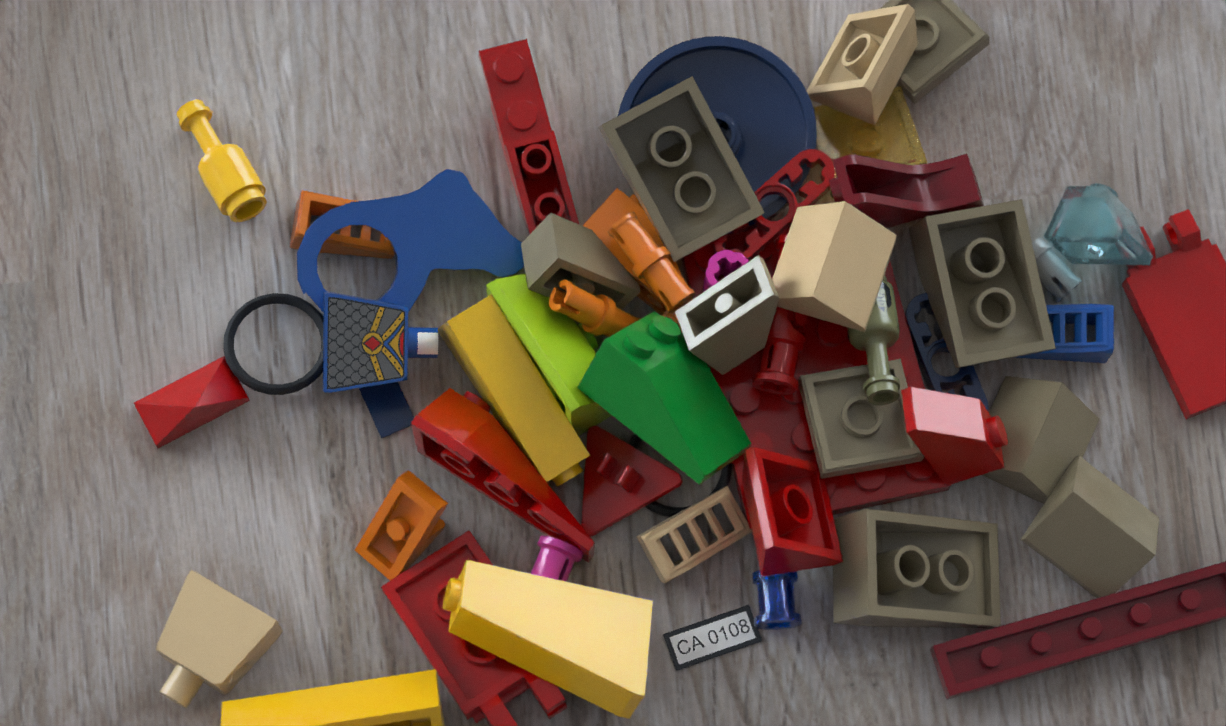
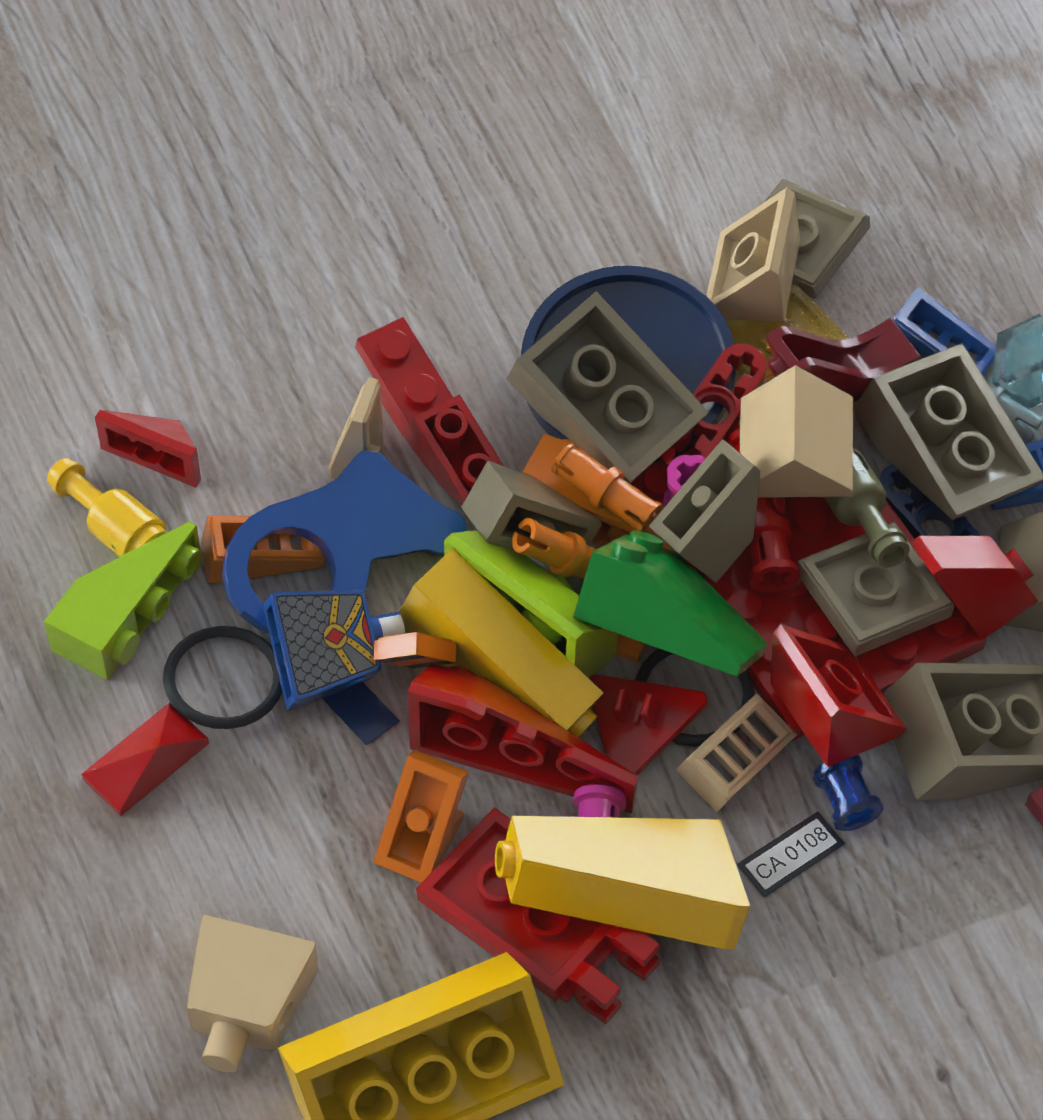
camera: 15 degrees left, 15 degrees down
(201, 253) = (112, 606): none -> lime slope
(279, 98) = (150, 442): none -> red slope
(438, 373) = (414, 650): none -> orange tile
(458, 145) = (362, 429): none -> tan slope
(1029, 165) = (936, 318): none -> blue slope

